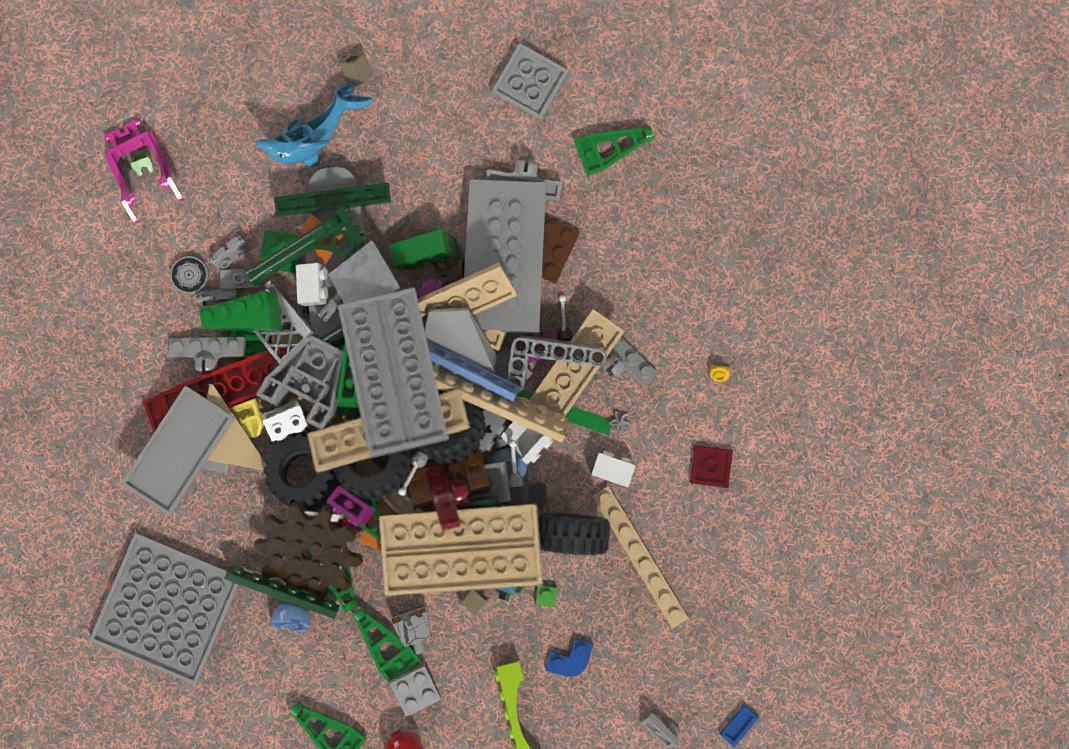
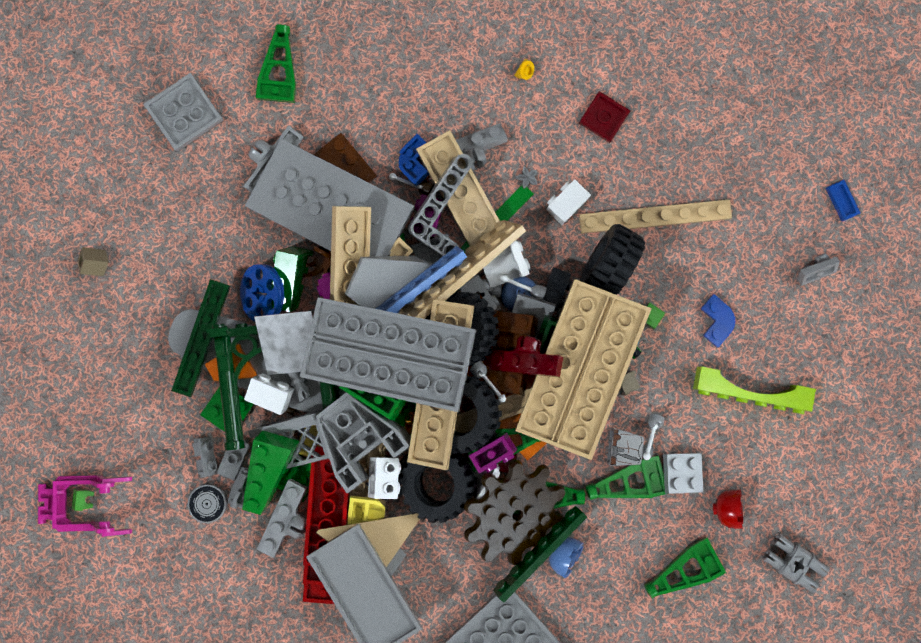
camera: 70 degrees left, 0 degrees up
(305, 141) = (135, 334): dark azure animal -> none
(405, 232) = (264, 286): none -> blue wedge
(449, 644) = (655, 422): none -> hinge
(583, 306) = (409, 161): none -> blue plate

